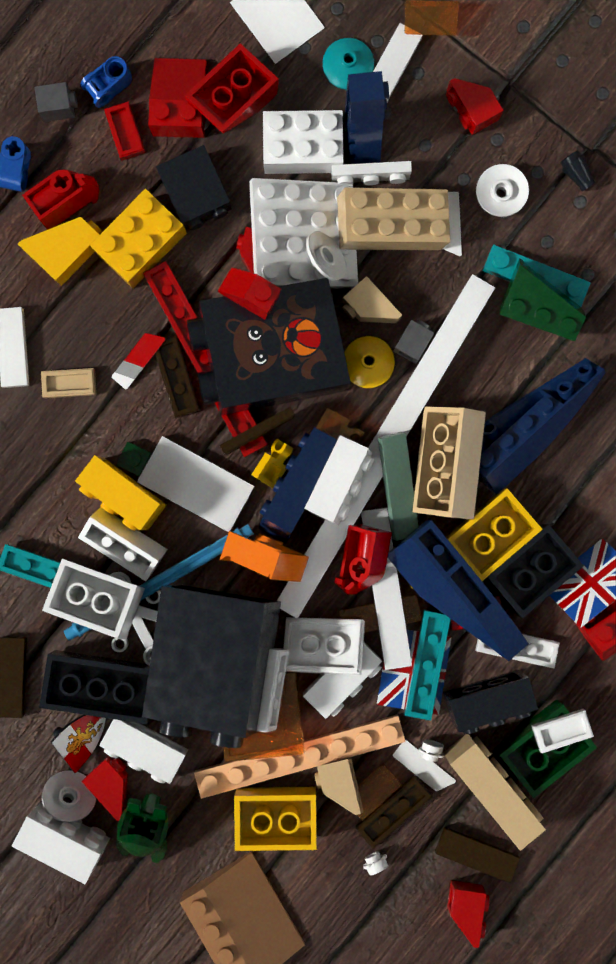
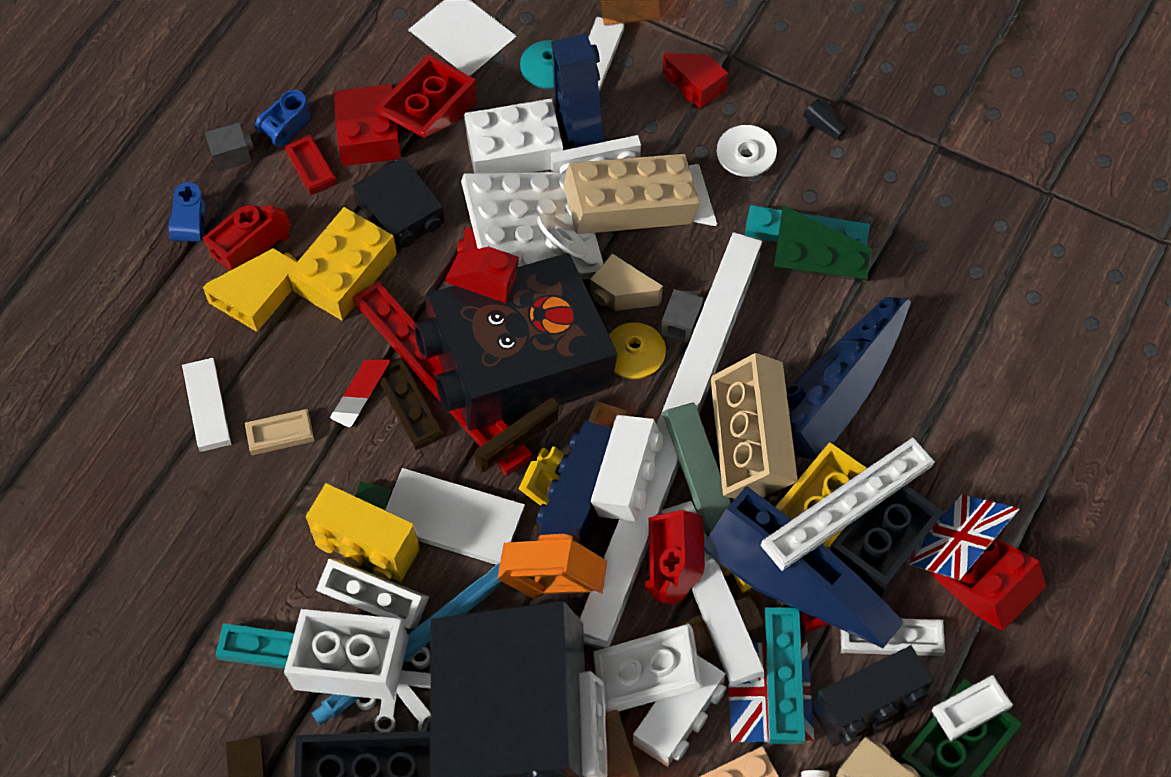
camera: 10 degrees left, 25 degrees down
(509, 549) = (847, 504): none -> white tile

